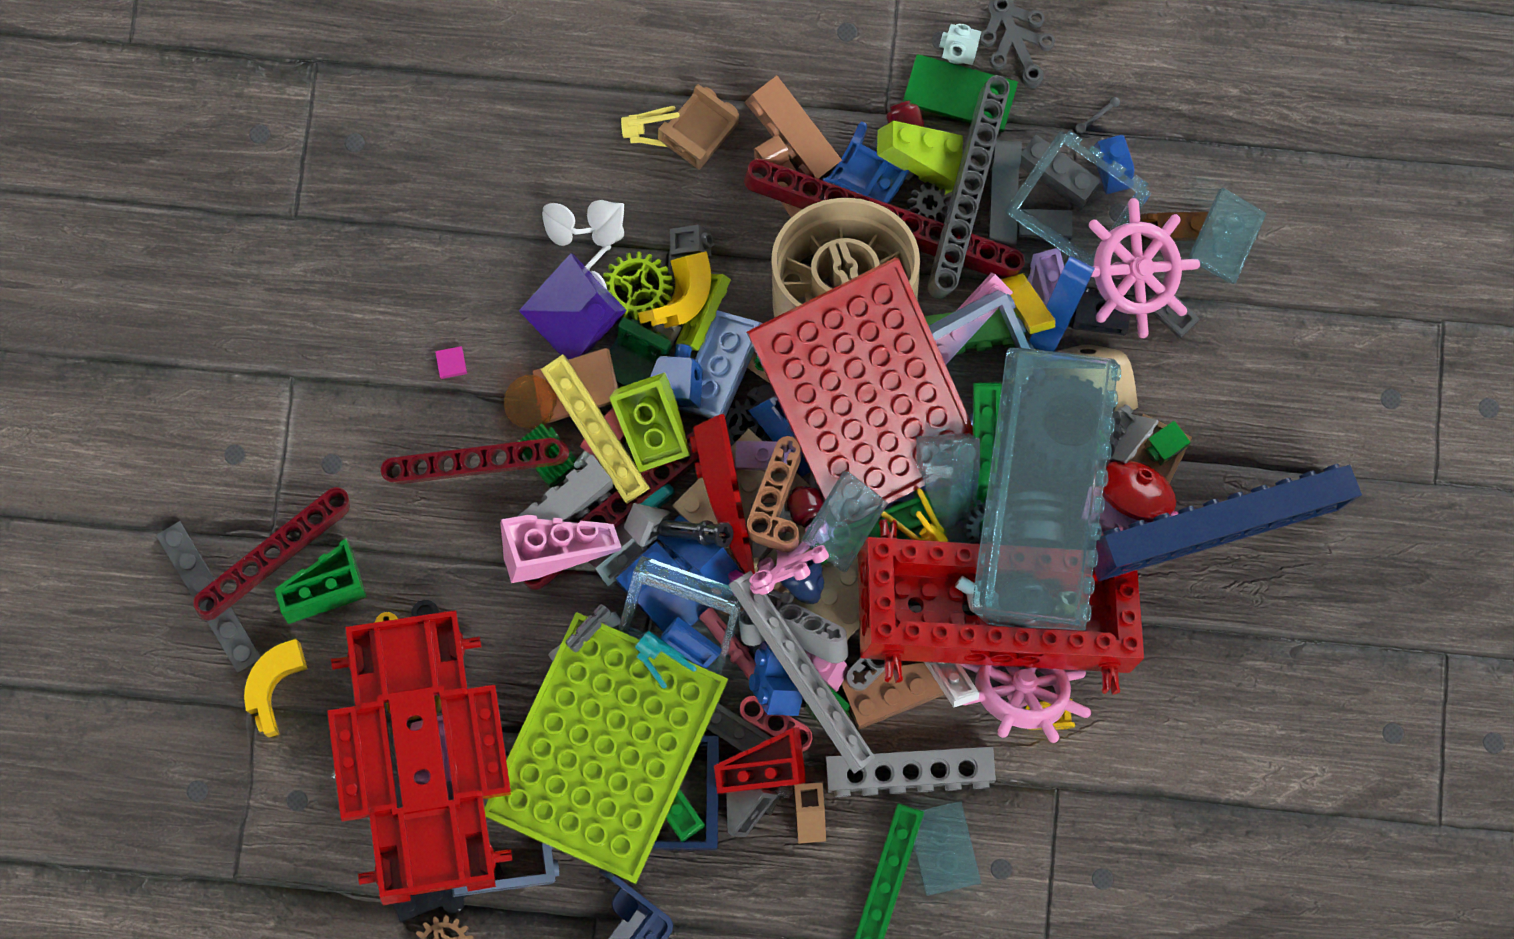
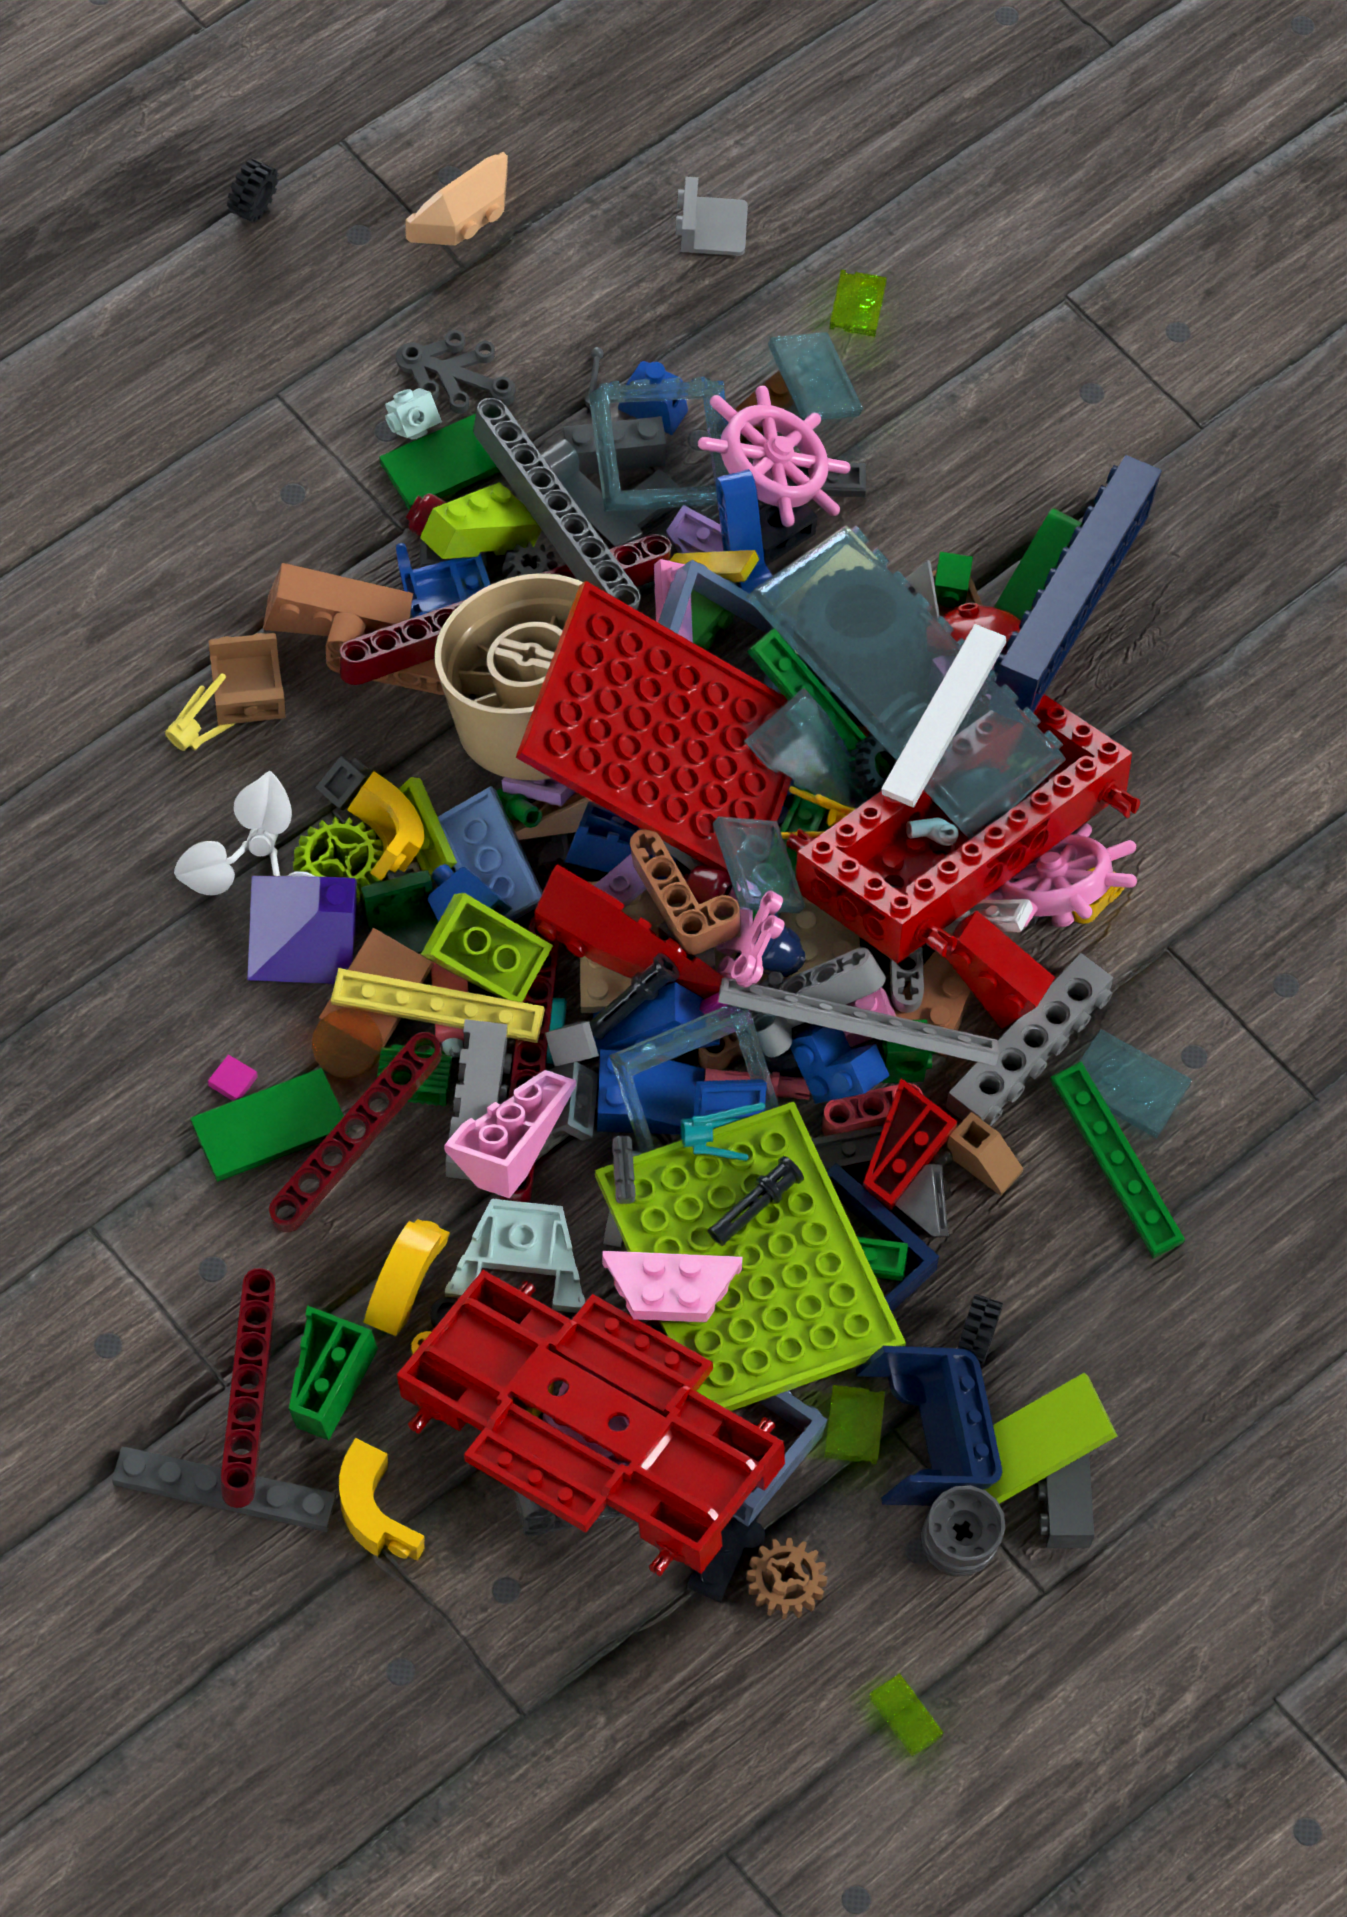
camera: 50 degrees left, 15 degrees down
(421, 566) = (403, 1274): none -> yellow arch
(443, 408) = (267, 1124): none -> green tile
(507, 610) = (522, 1240): none -> light aqua wing
(541, 722) = (671, 1284): none -> bright pink wing
(574, 896) = (854, 1424): none -> clear neon green plate
(602, 718) = (765, 1187): none -> black pin
(695, 912) = (980, 1326): none -> black tyre
(924, 712) = (997, 970): none -> red wedge
(1034, 537) = (943, 715): none -> white tile
(1226, 482) = (1037, 563): none -> green beam
(1269, 77) = (710, 223): none -> light grey bracket
(1305, 211) = (858, 303): none -> clear neon green plate

